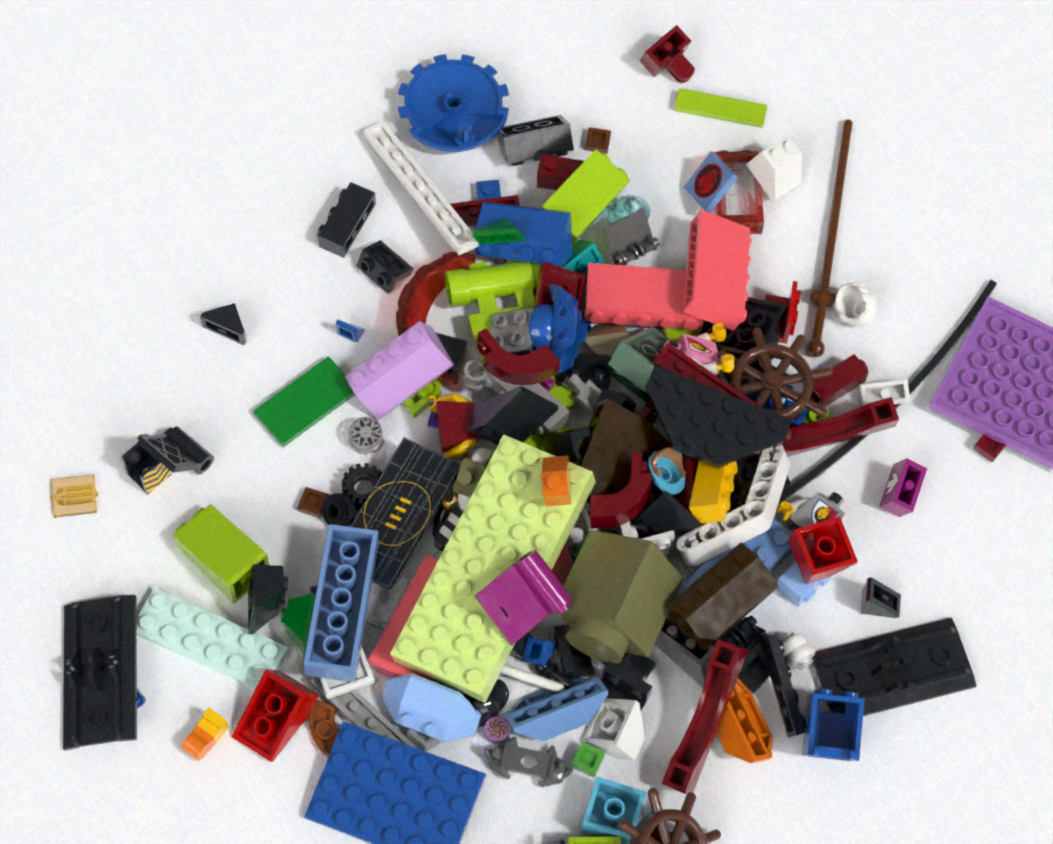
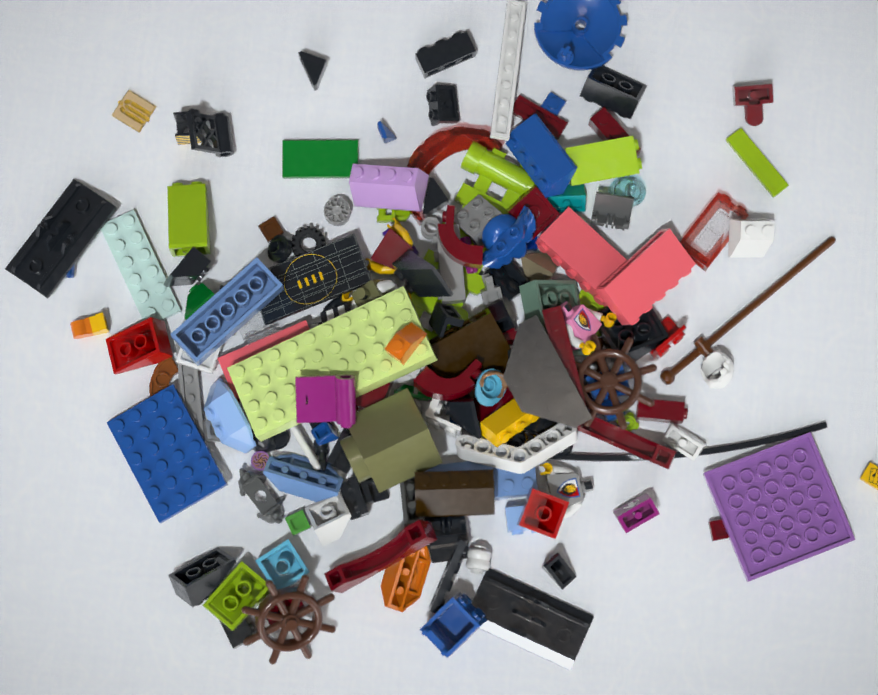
camera: 40 degrees right, 15 degrees up
(498, 232) = (525, 143): green slope -> none
(598, 139) = (655, 123): reddish brown tile -> none
(710, 182) = (697, 212): medium blue tile -> none

